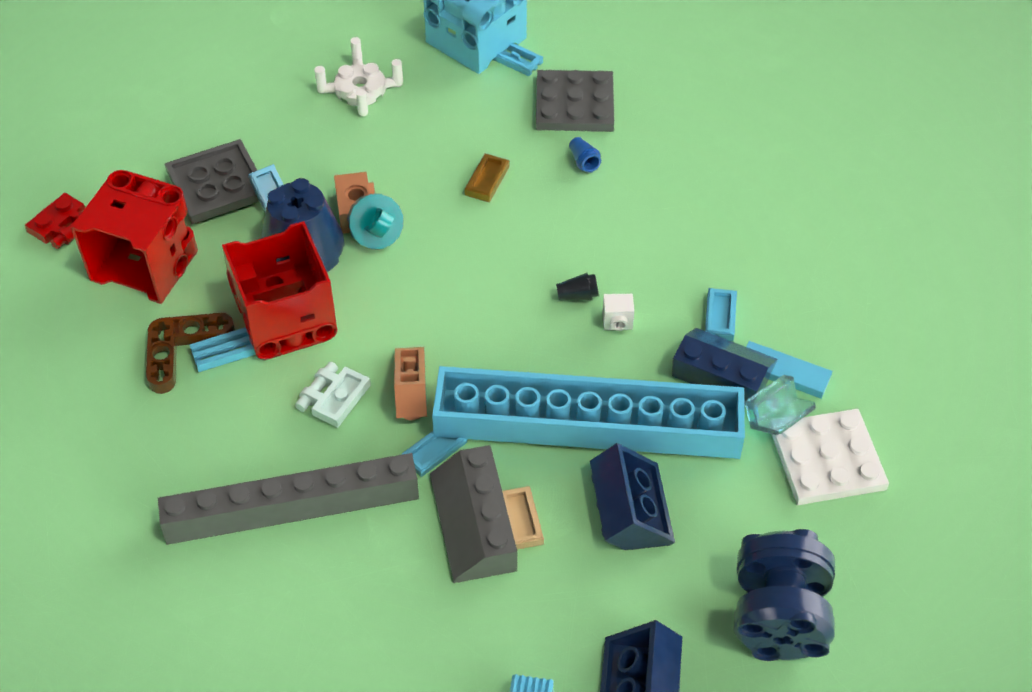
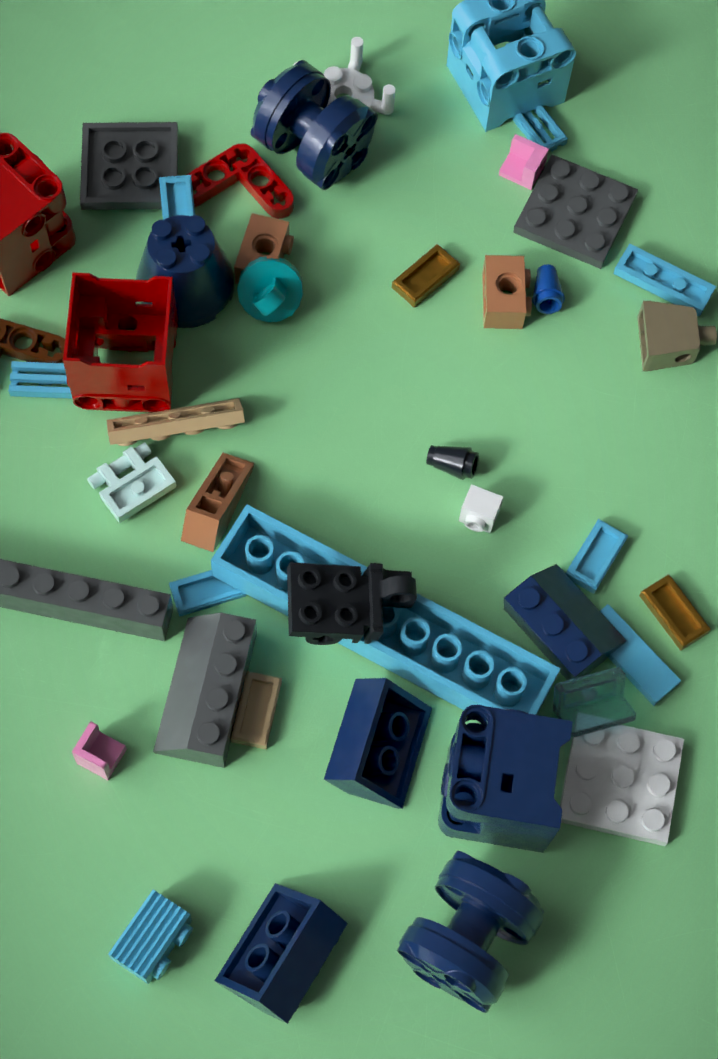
camera: 20 degrees right, 15 degrees up
(309, 155) = (244, 173): none -> red beam
(333, 97) = (296, 113): none -> dark blue wheel
(336, 345) = (186, 420): none -> tan plate
(409, 598) = (98, 751): none -> bright pink panel
(520, 80) = (524, 162): none -> bright pink panel
(554, 166) = (504, 309): none -> nougat brick
(555, 400) = (341, 604): none -> black plate
(665, 120) = (664, 279): none -> medium azure plate
(690, 152) = (671, 335): none -> dark tan torso
(747, 477) = (503, 778): none -> dark blue piece
(799, 329) = (674, 612): none -> pearl gold tile

